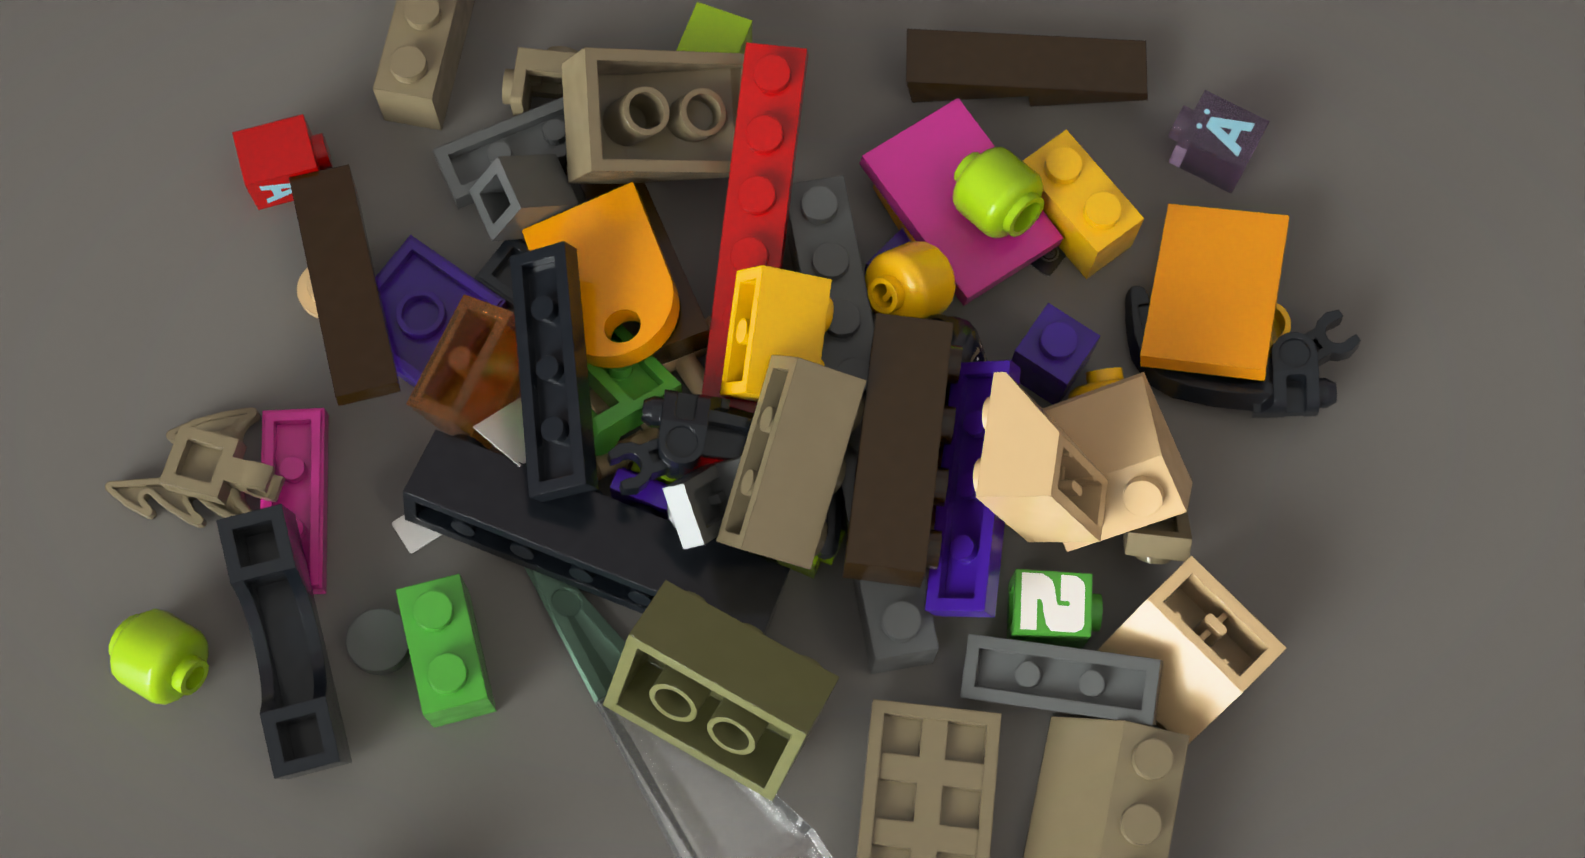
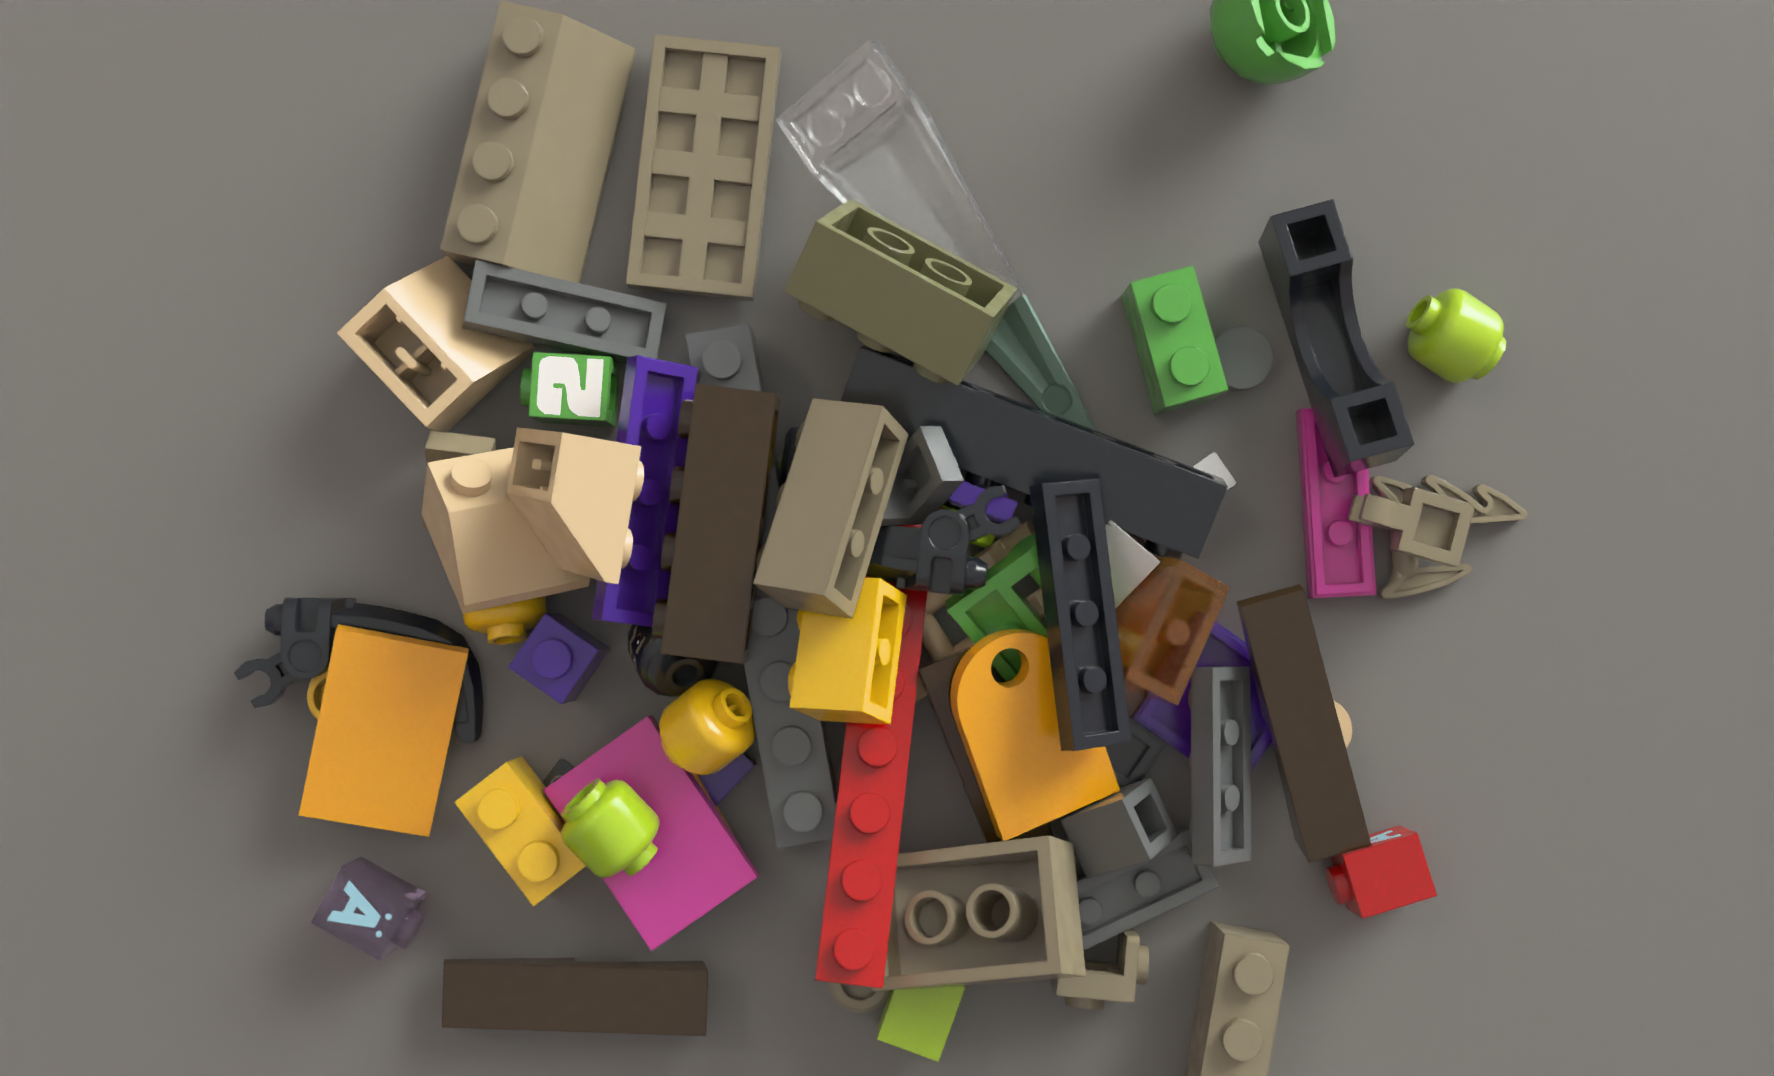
camera: 175 degrees left, 15 degrees up
(425, 249) = (1220, 765): none -> dark grey plate

